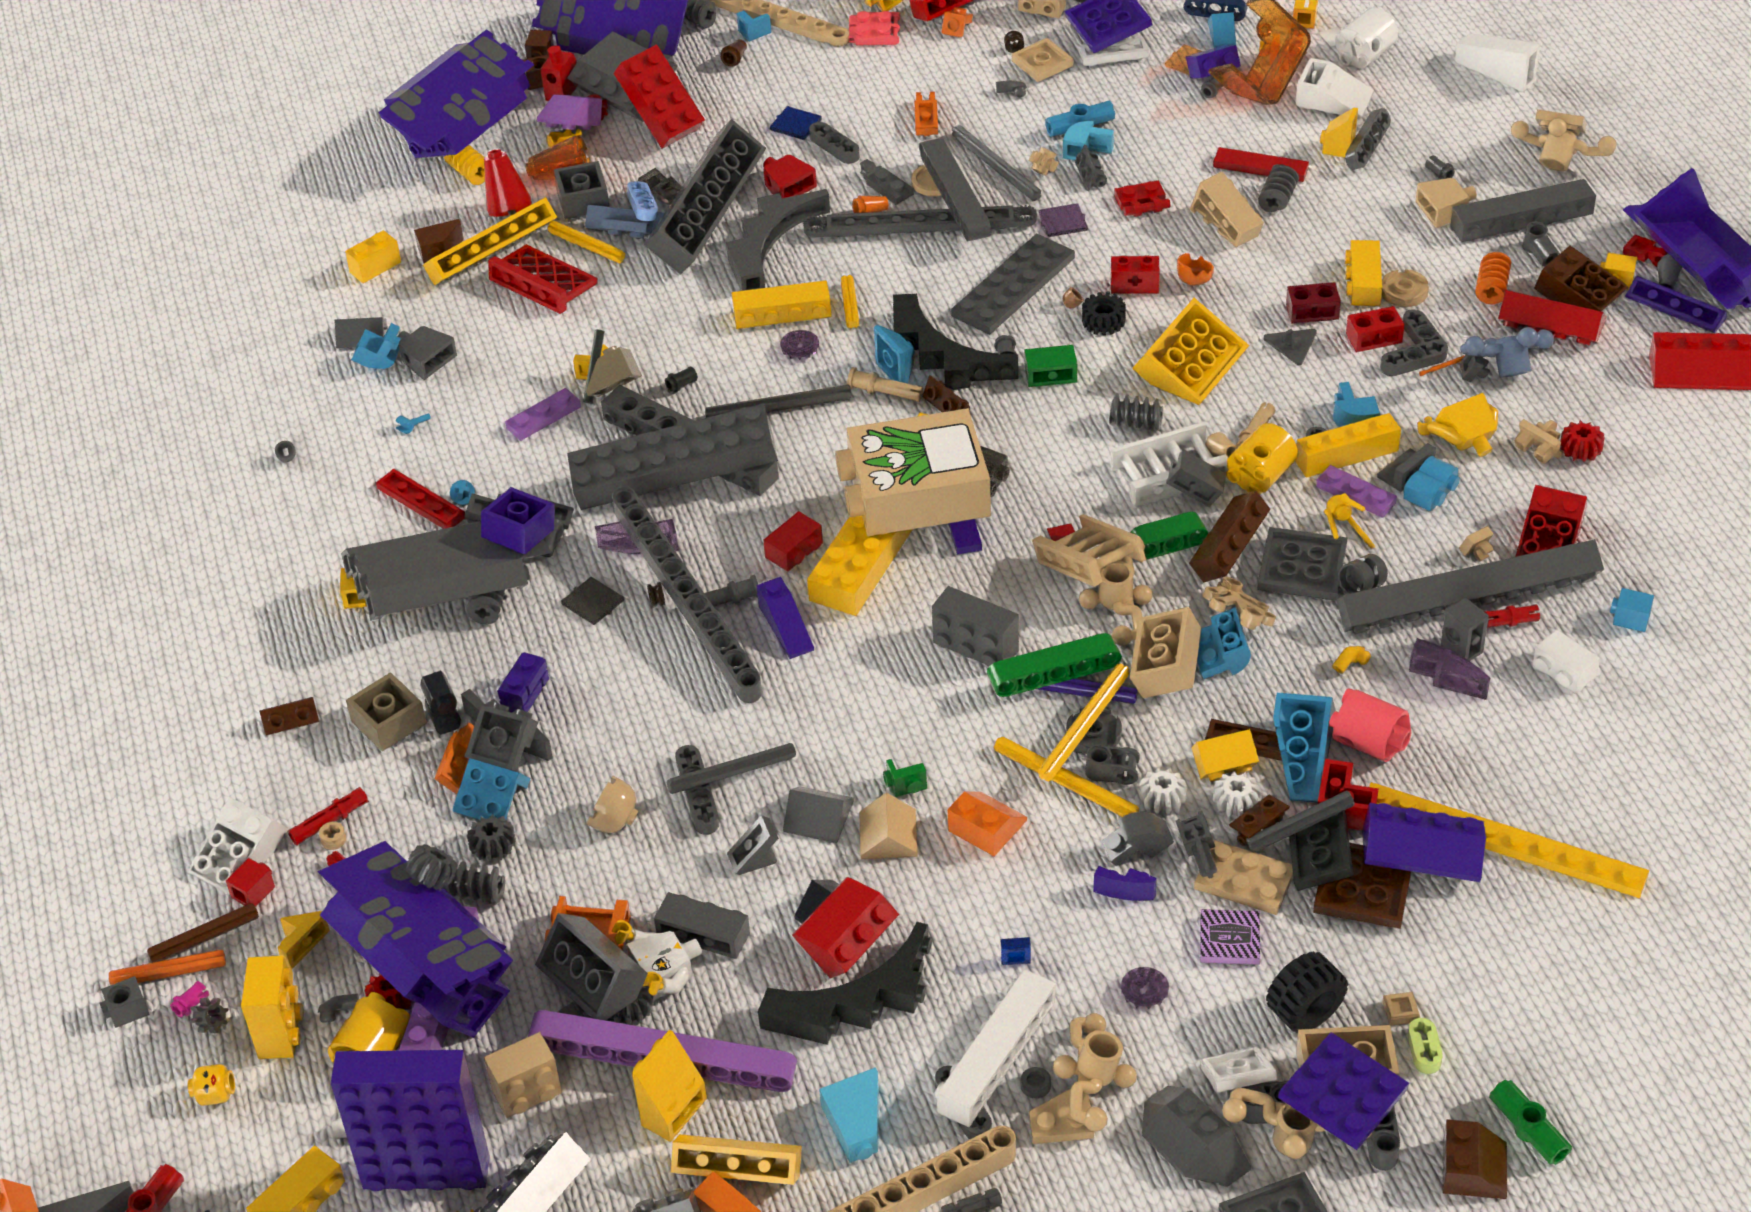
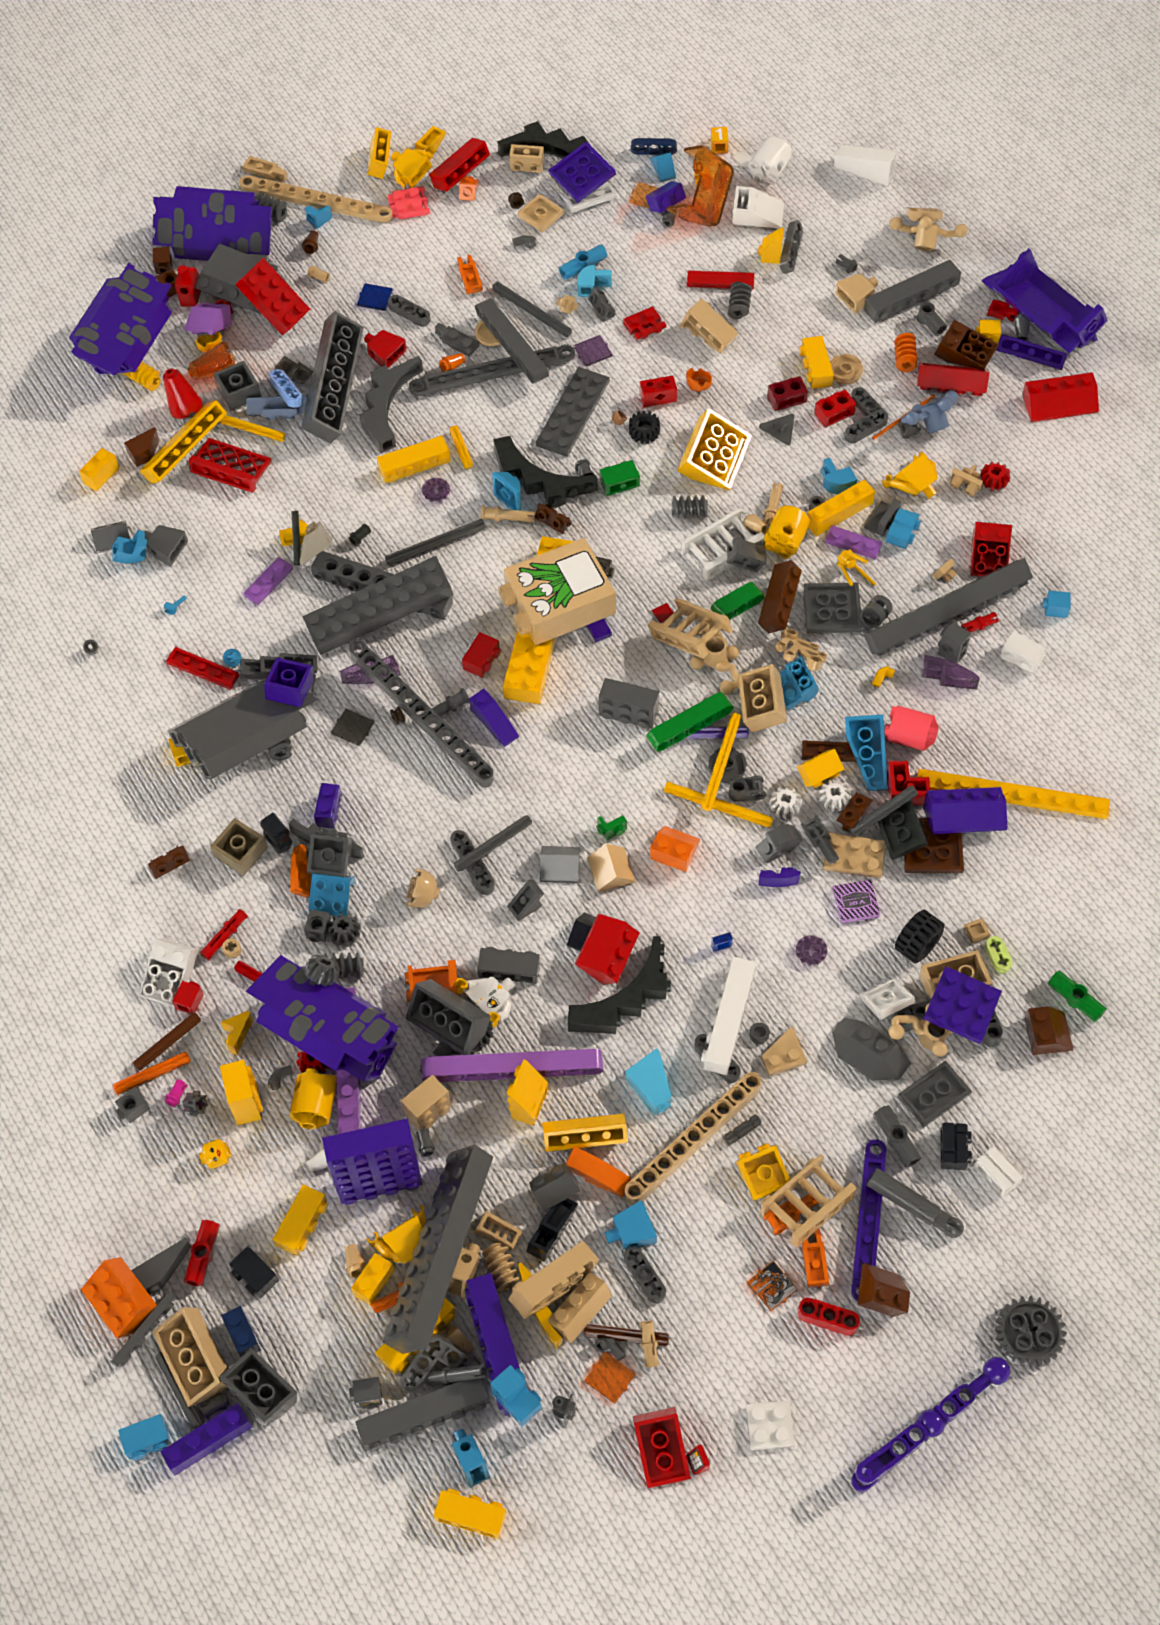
camera: 15 degrees left, 15 degrees up
(453, 827) = (317, 918): none -> dark grey brick
(506, 1136) = (426, 1147): none -> dark grey pin
(727, 85) = (314, 272): none -> tan pin
(1096, 1067) = (798, 1014): tan wheel -> none

